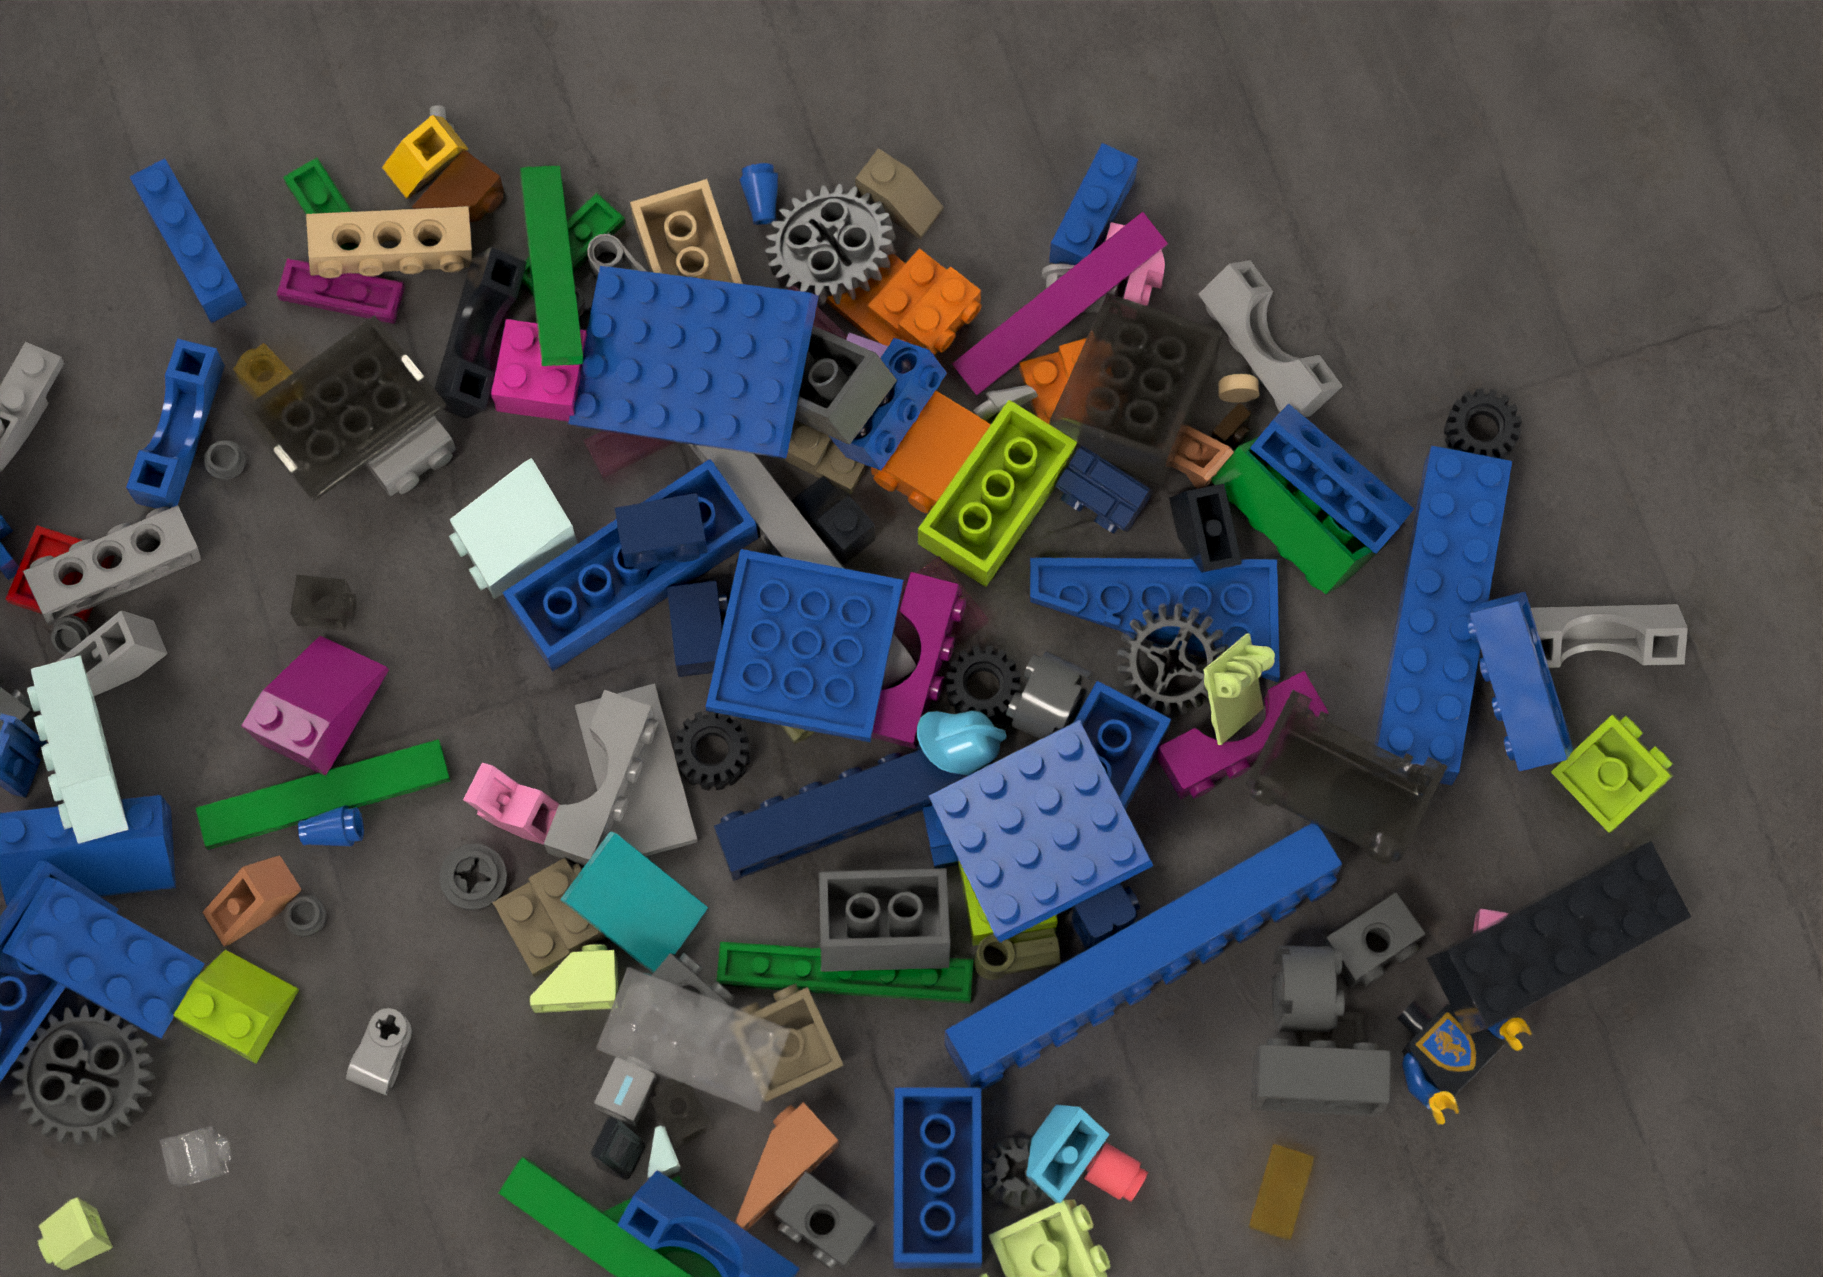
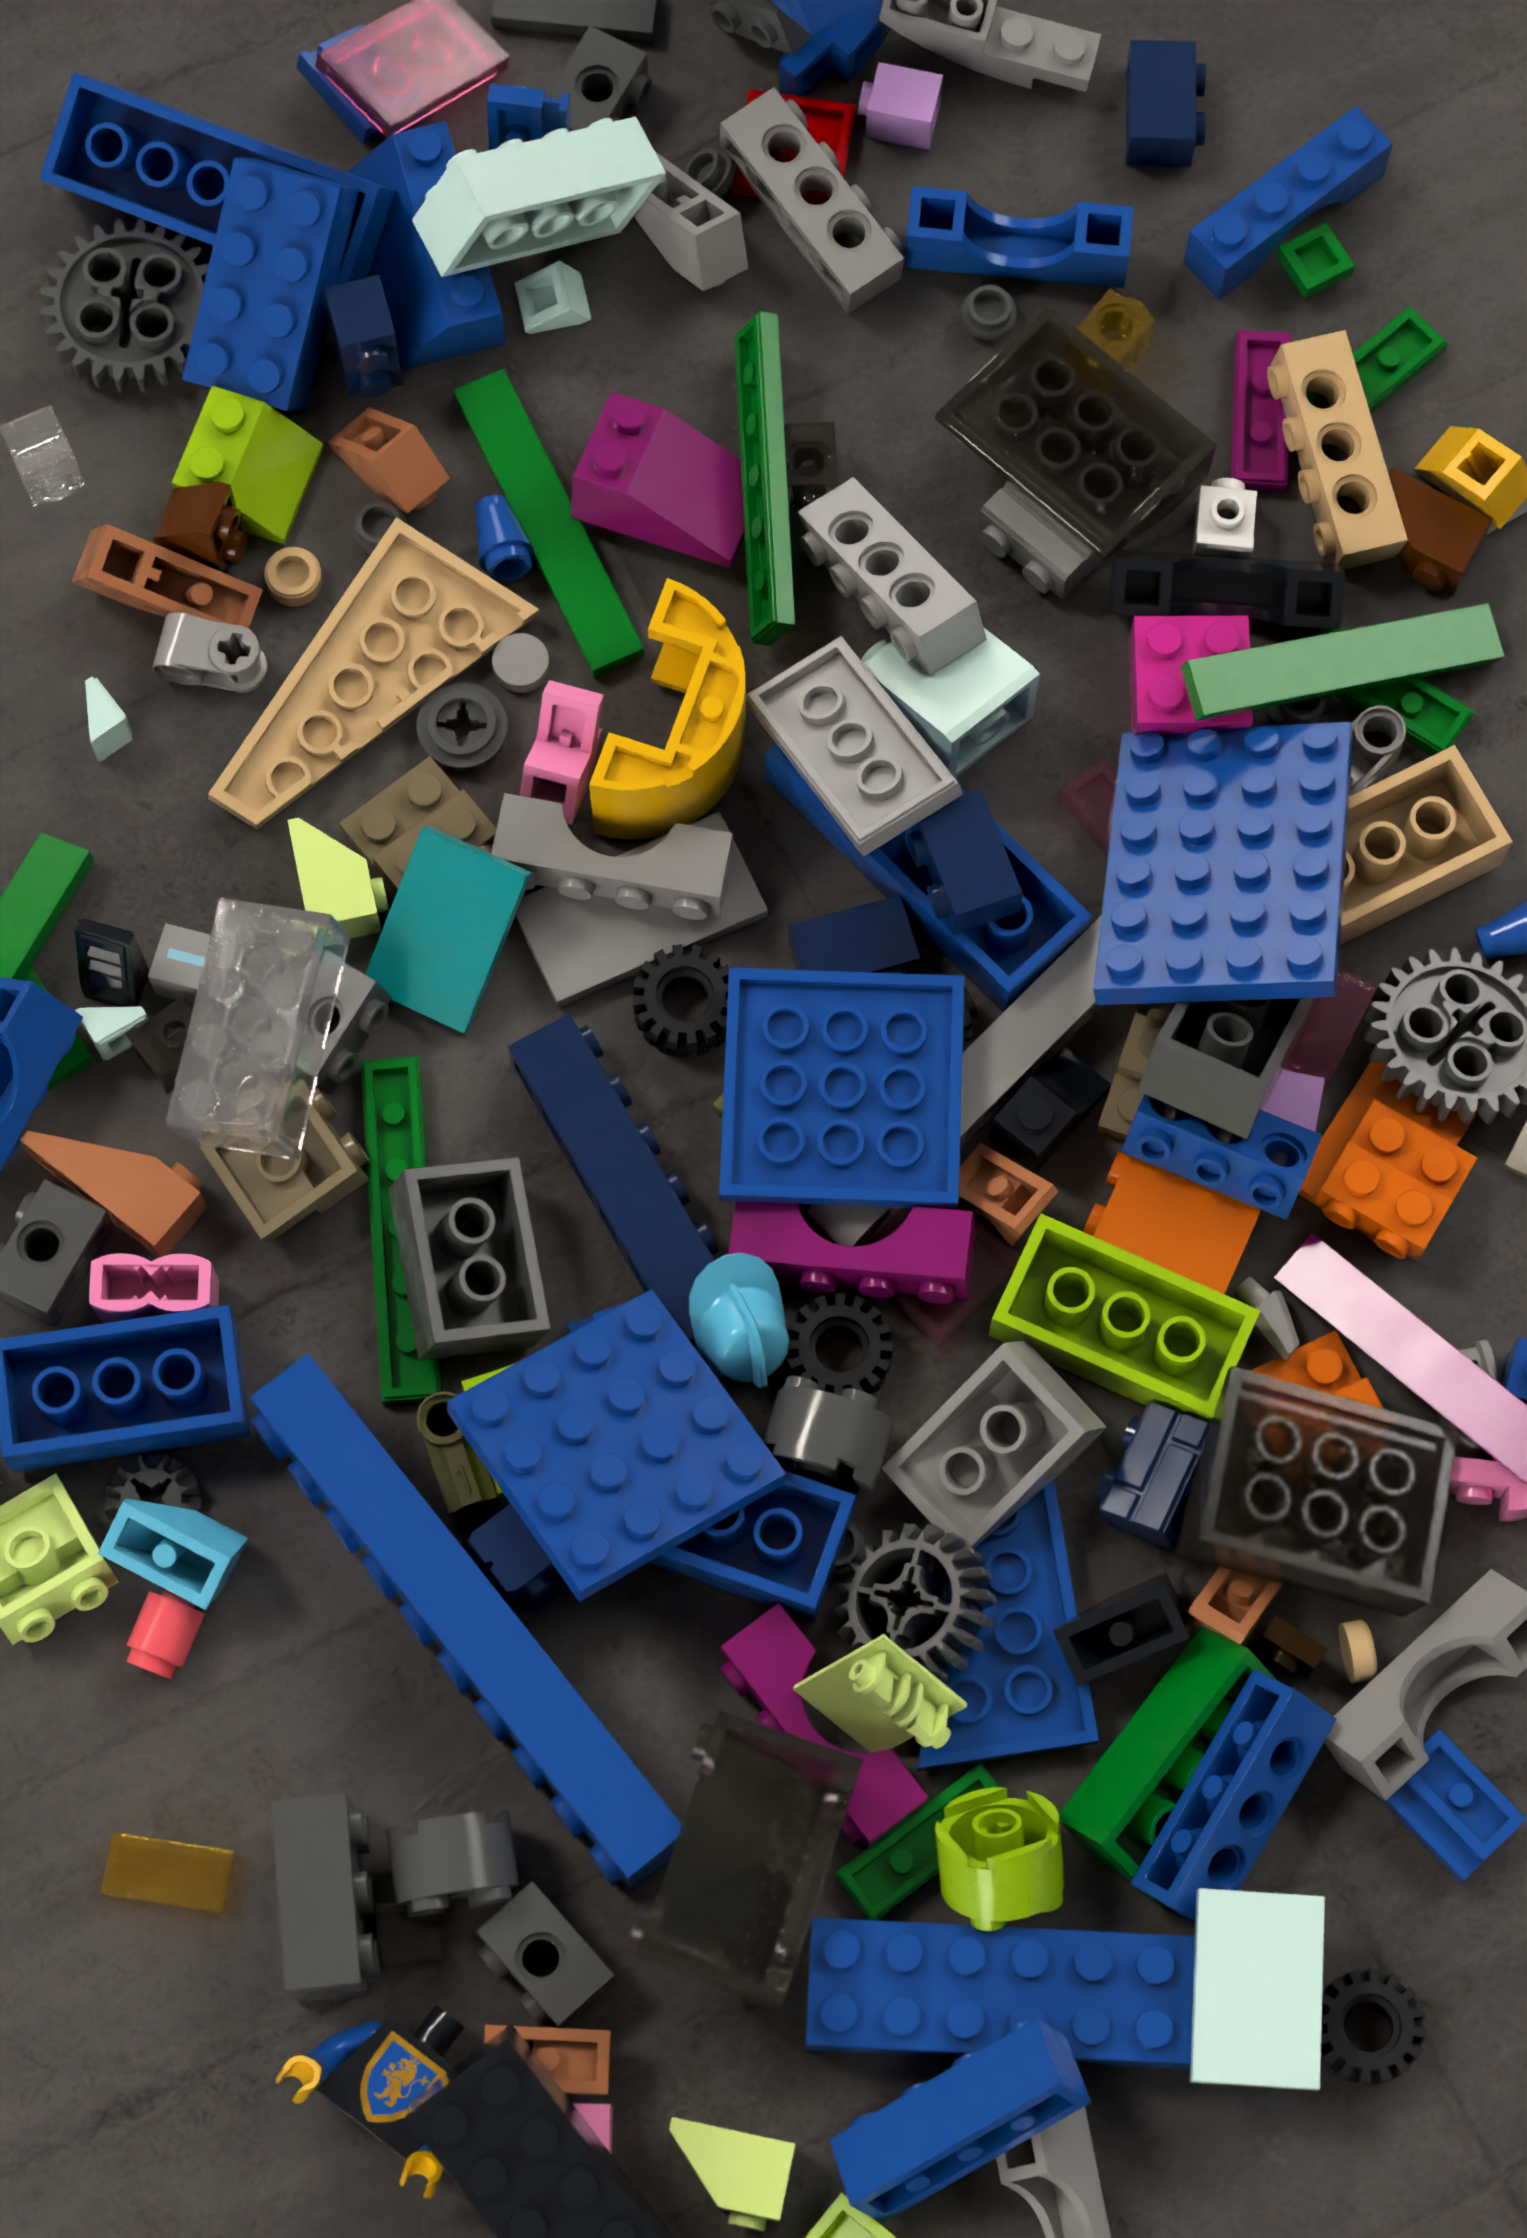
camera: 80 degrees right, 0 degrees up
(47, 491) = (901, 105): none -> lavender brick
(87, 311) = (1162, 103): none -> dark blue brick
(144, 767) = (552, 299): none -> light aqua slope
(156, 899) = (363, 337): none -> dark blue brick
(235, 232) = (1315, 261): none -> green plate
(283, 1041) = (203, 525): none -> reddish brown slope
(317, 1078) = (161, 580): none -> nougat slope
(328, 631) = (764, 479): none -> green tile
(328, 984) = (293, 576): none -> tan tile
(373, 573) = (890, 577): none -> light grey brick
(406, 924) = (388, 644): none -> tan wing
(418, 1133) = (106, 721): none -> light aqua slope
(428, 339) = (1222, 536): none -> white brick
(430, 829) = (520, 663): none -> light grey tile
(518, 690) = (648, 789): none -> yellow cylinder
(560, 592) = (853, 746): none -> light grey tile
(871, 1135) = (135, 1288): none -> bright pink brick
(895, 551) = (1003, 1192): none -> nougat slope
(1072, 588) = (994, 1444): none -> light grey slope
(1310, 652) = (904, 1856): none -> green tile
(1351, 347) = (1454, 1809): none -> blue plate
(1351, 629) = (1000, 1857): none -> lime brick
(1445, 926) = (572, 2056): none -> nougat slope
(1461, 480) = (1257, 1989): none -> light aqua tile
(1529, 835) = (738, 2170): none -> yellowish green slope

